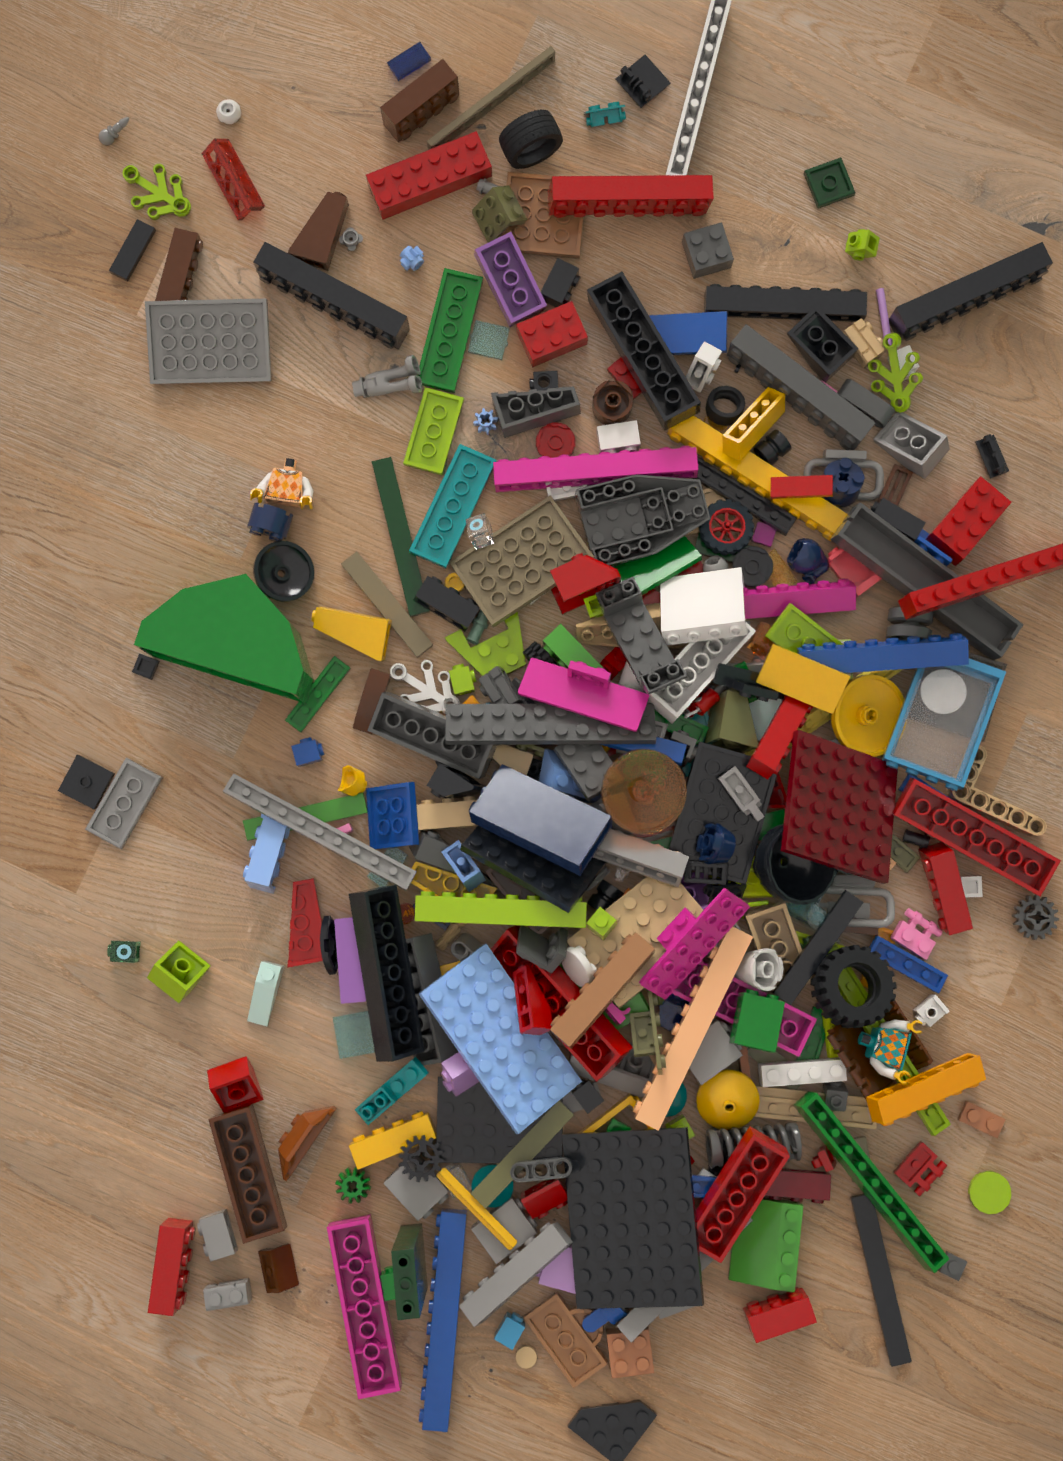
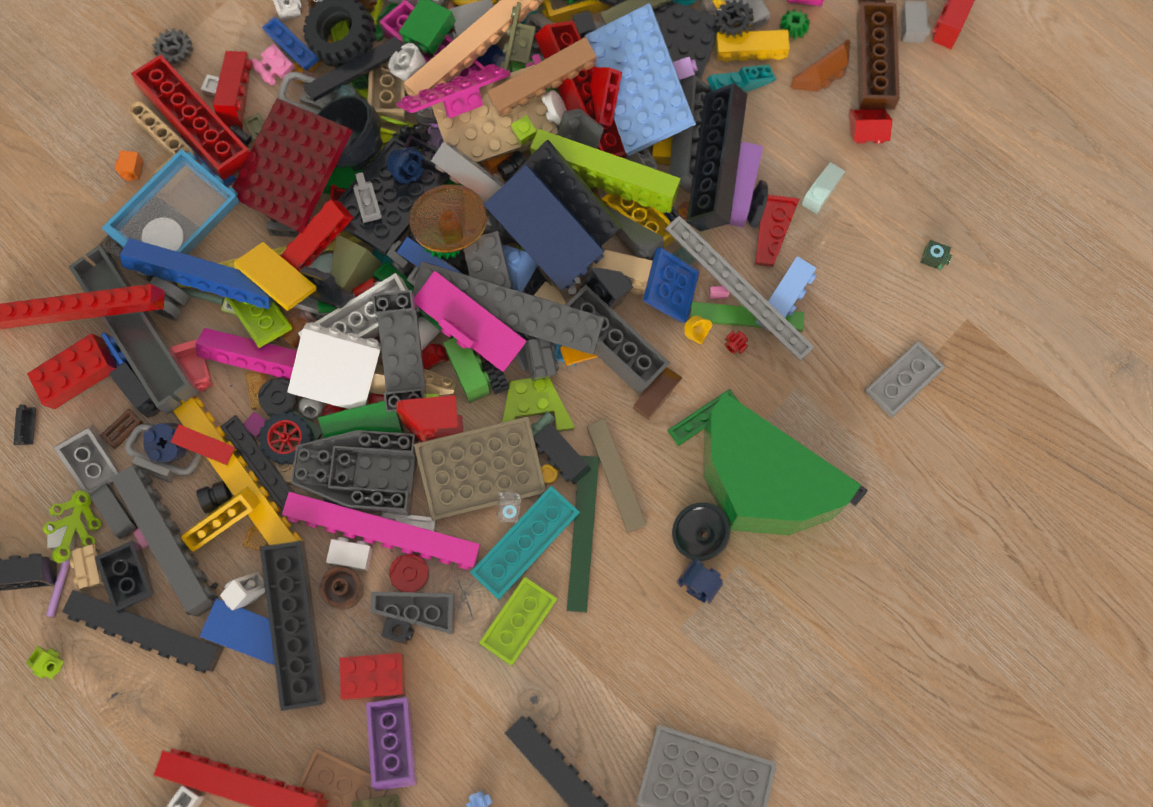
camera: 160 degrees left, 10 degrees down
(86, 782) = (934, 407): black plate -> none
(178, 971) = (893, 224): lime slope -> none
(285, 487) = (675, 612): torso -> none
(307, 752) = (728, 367): blue brick -> none
(307, 781) = (736, 342): none -> red gear
(353, 1034) = (759, 131): clear light blue tile -> none
(356, 630) = (653, 459): yellow slope -> none
(378, 382) = (554, 684): light grey piece -> none
(427, 691) = (604, 386): white plant -> none
(449, 329) = (468, 717): green plate -> none
(462, 679) = (571, 384): lime brick -> none
(463, 866) = (624, 215): medium blue slope -> none
(484, 415) = (464, 618): light blue gear -> none
(488, 340) = (434, 695): clear light blue piece -> none
(560, 283) = (345, 725): black brick -> none
(620, 372) = (322, 614): red plate -> none
(707, 250) = (191, 709): dark grey brick -> none
(731, 394) = (225, 554): black tyre -> none
(808, 559) = (227, 387): dark blue piece -> none
(829, 183) = (47, 741): dark green tile -> none
(867, 714) = (234, 236): yellow dish -> none
(1017, 762) = (129, 165): none -> orange brick

